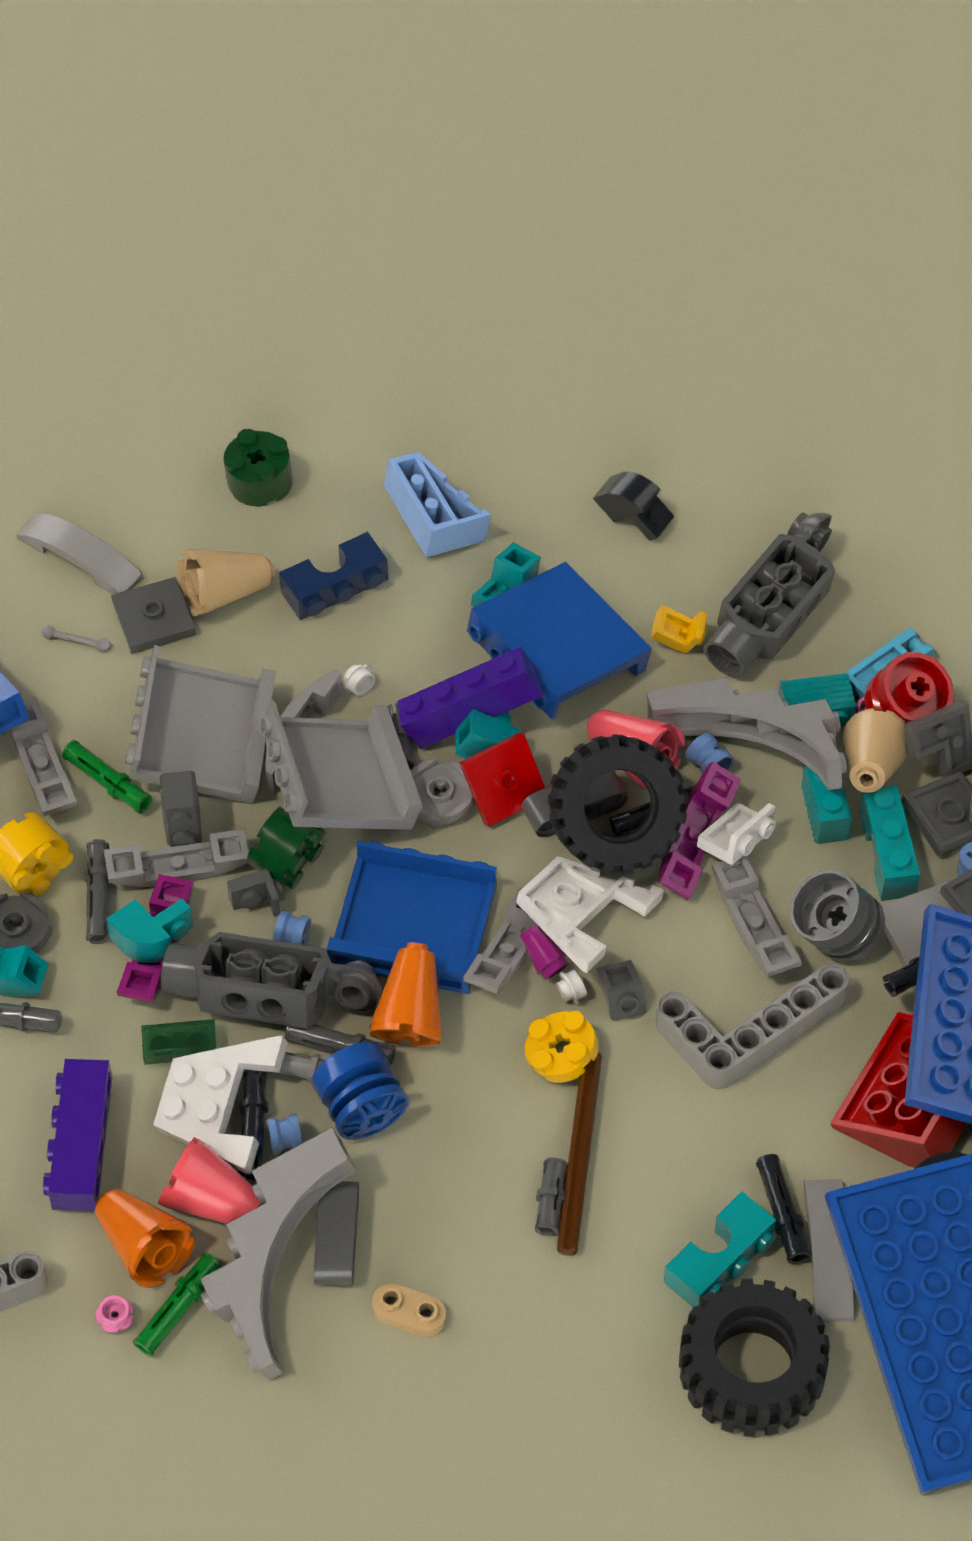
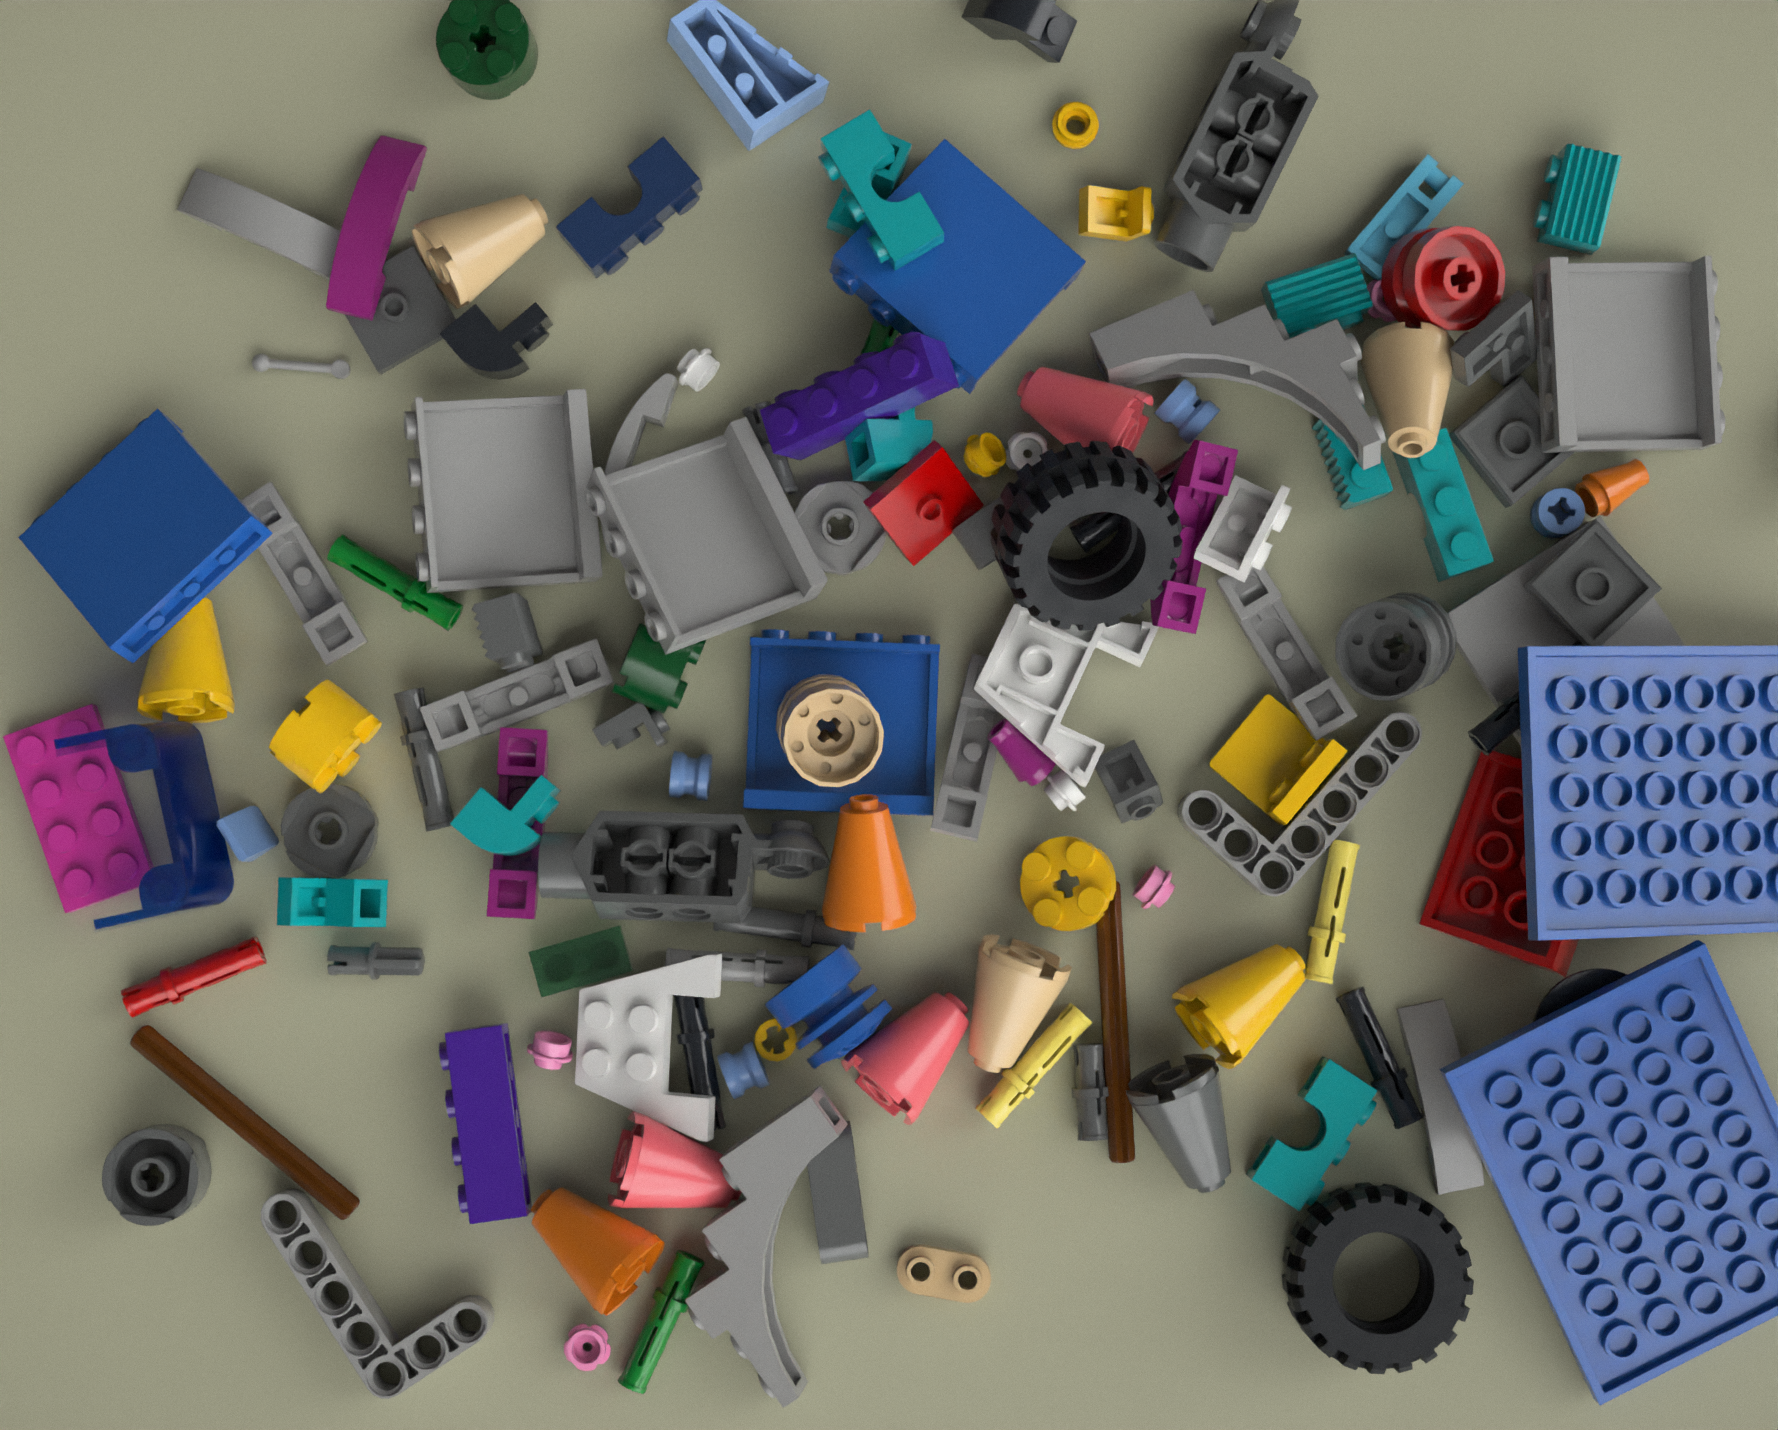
camera: 10 degrees left, 30 degrees up
(140, 1098) = (550, 1049): none -> bright pink plate
(145, 558) = (370, 226): none -> magenta slope
(219, 646) = (495, 352): none -> black brick
(311, 1110) = (762, 1034): none -> yellow bush
(402, 884) = (828, 756): none -> tan wheel
(411, 1141) = (909, 1055): none -> coral cone
(497, 1178) = (1028, 1071): none -> light yellow pin
(501, 1113) = (1011, 999): none -> tan cone
(520, 593) = (898, 228): none -> teal arch
(551, 759) = (984, 454): none -> yellow plate
(622, 1219) = (1186, 1118): none -> dark grey cone
(627, 1062) = (1154, 887): none -> bright pink plate
(664, 569) = (1075, 111): none -> yellow plate
(676, 1144) = (1239, 1001): none -> yellow cone
(736, 989) = (1275, 760): none -> yellow bracket
(747, 1134) = (1331, 912): none -> light yellow pin

